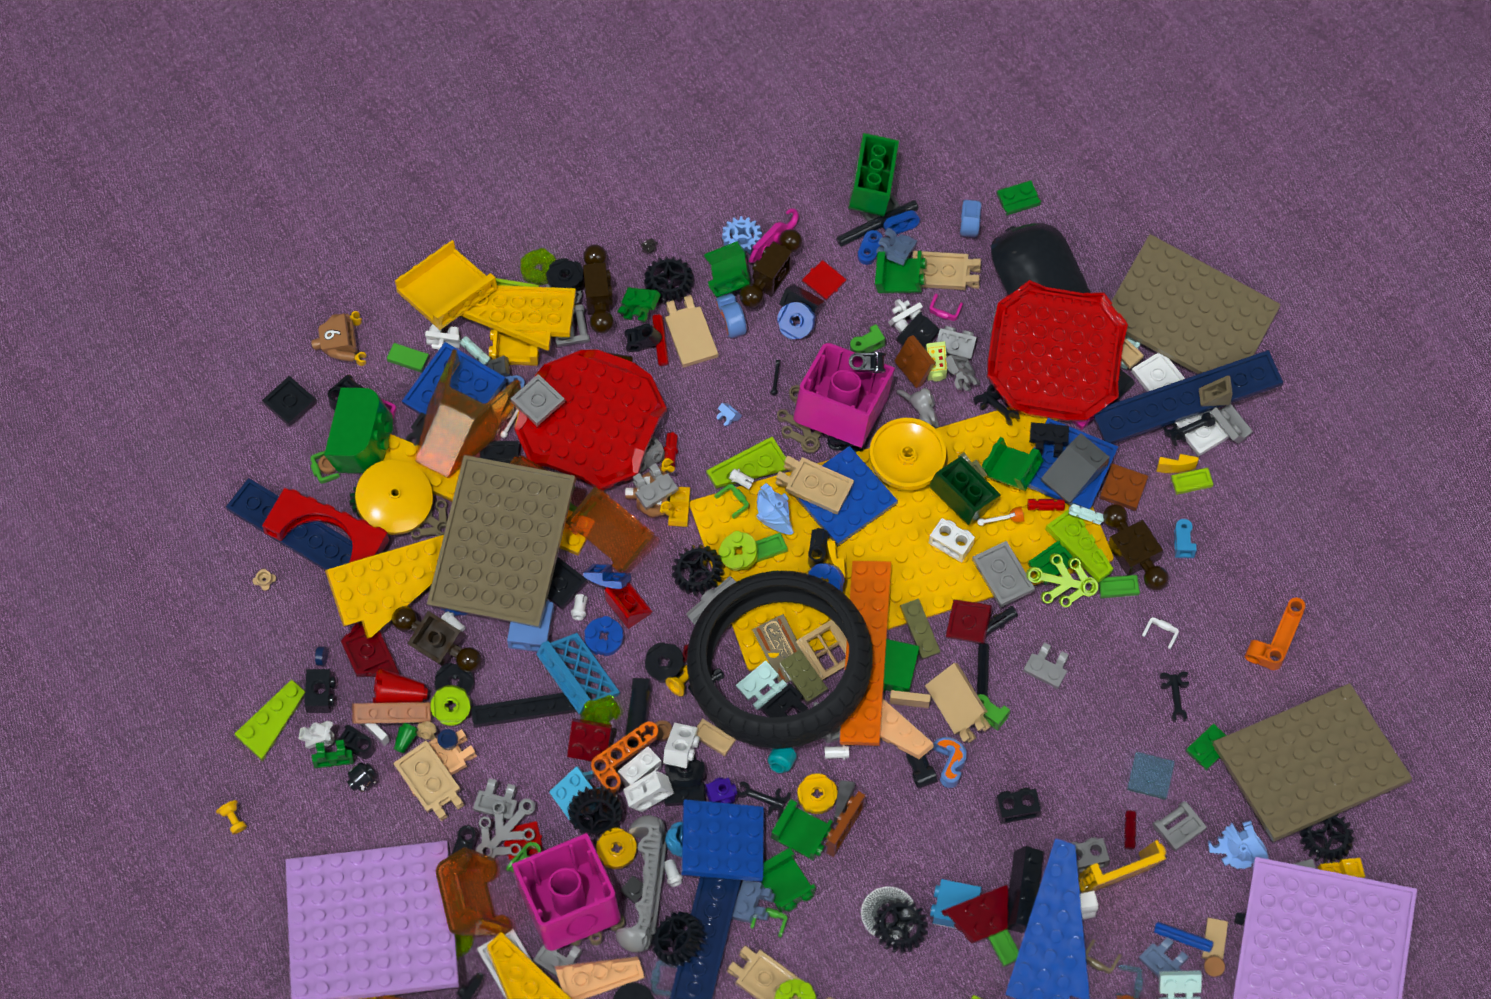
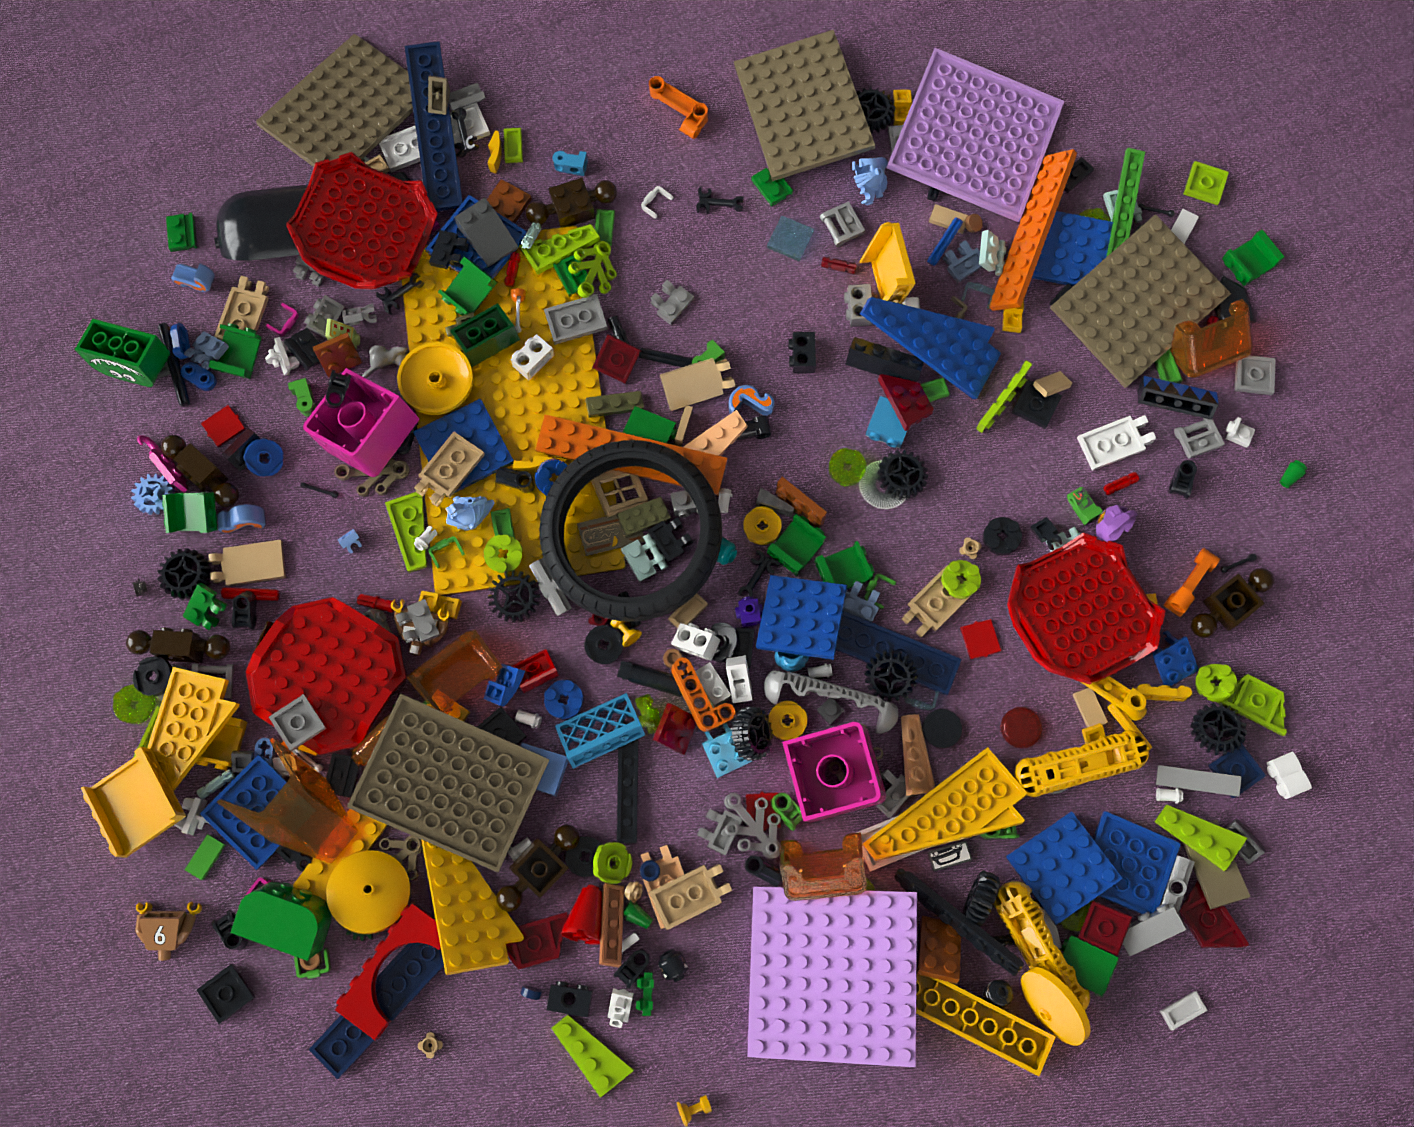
camera: 80 degrees left, 10 degrees up
(898, 858) = (846, 477): none -> clear neon green plate

